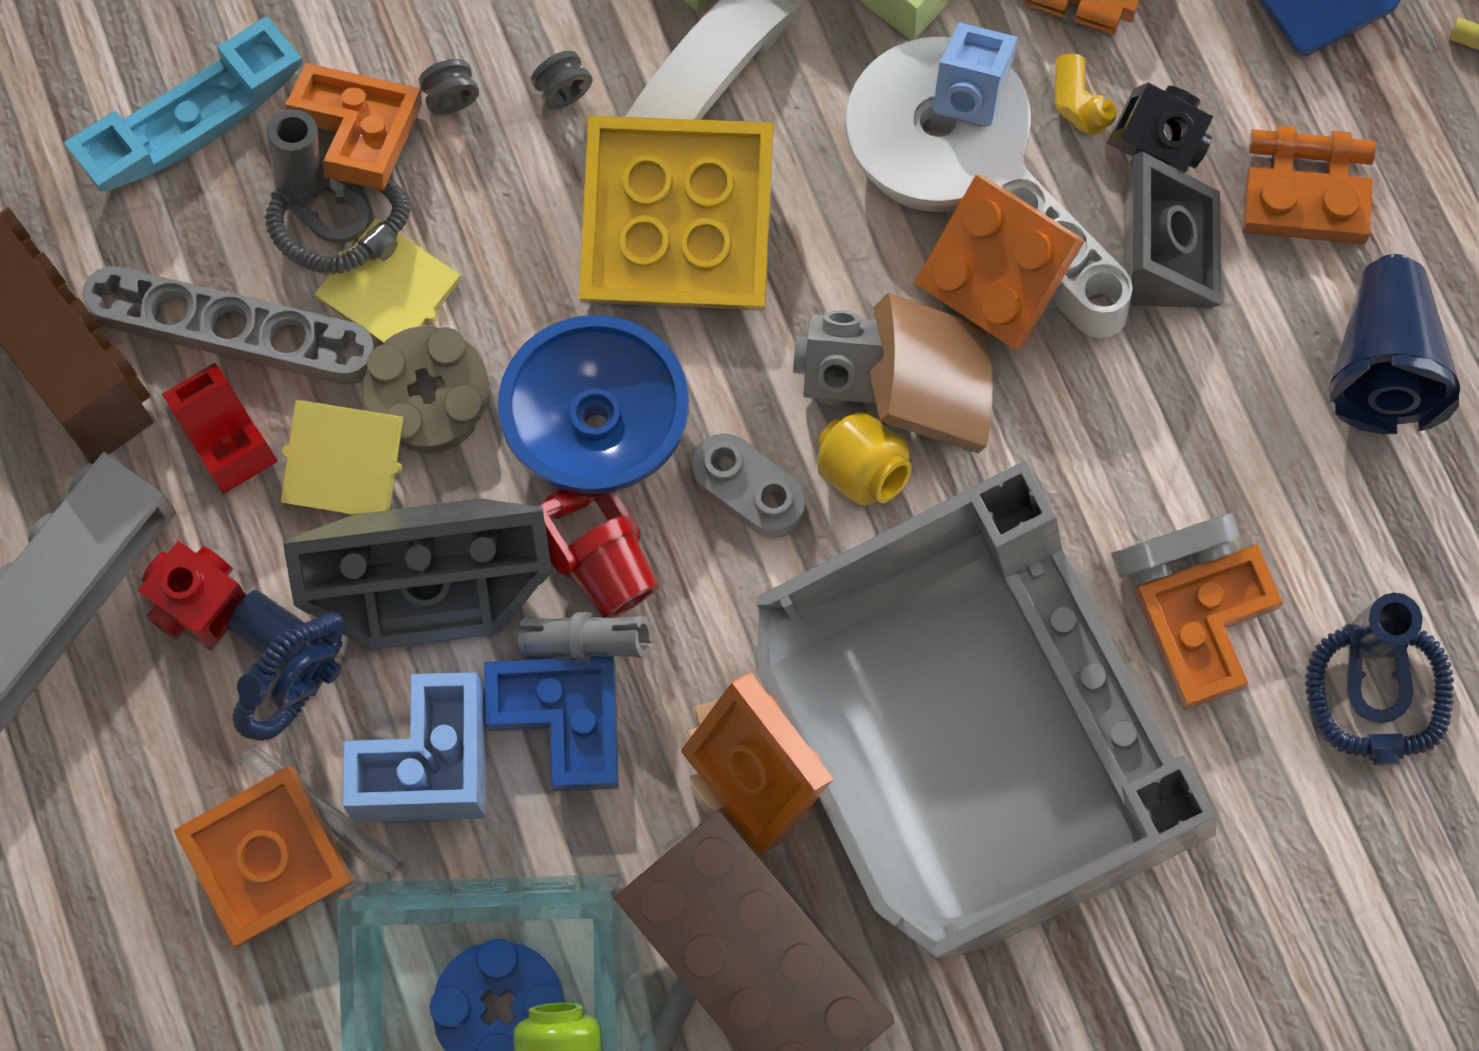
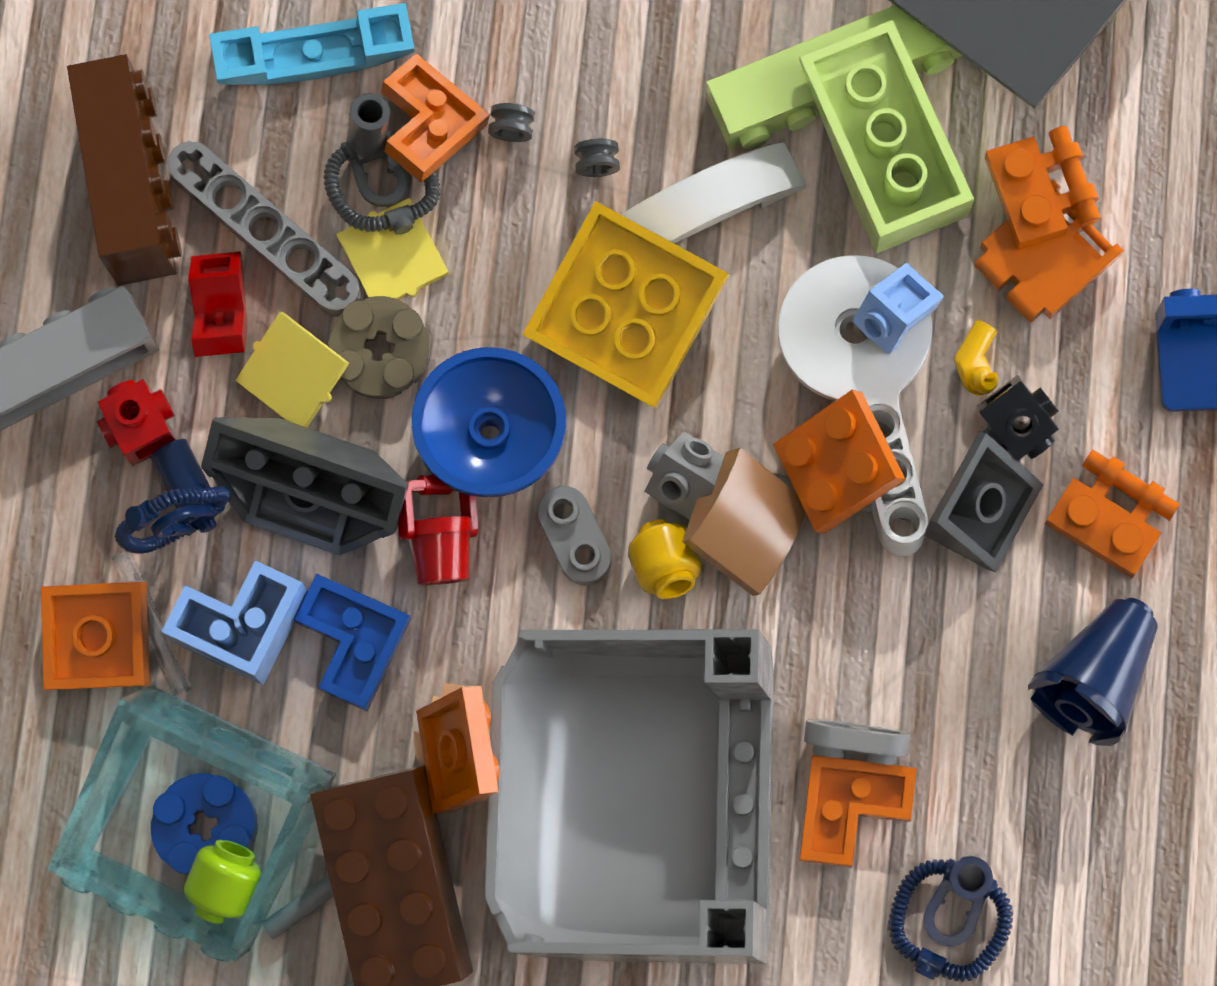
camera: 30 degrees right, 5 degrees up
(585, 637) = (396, 591): light grey pin -> none

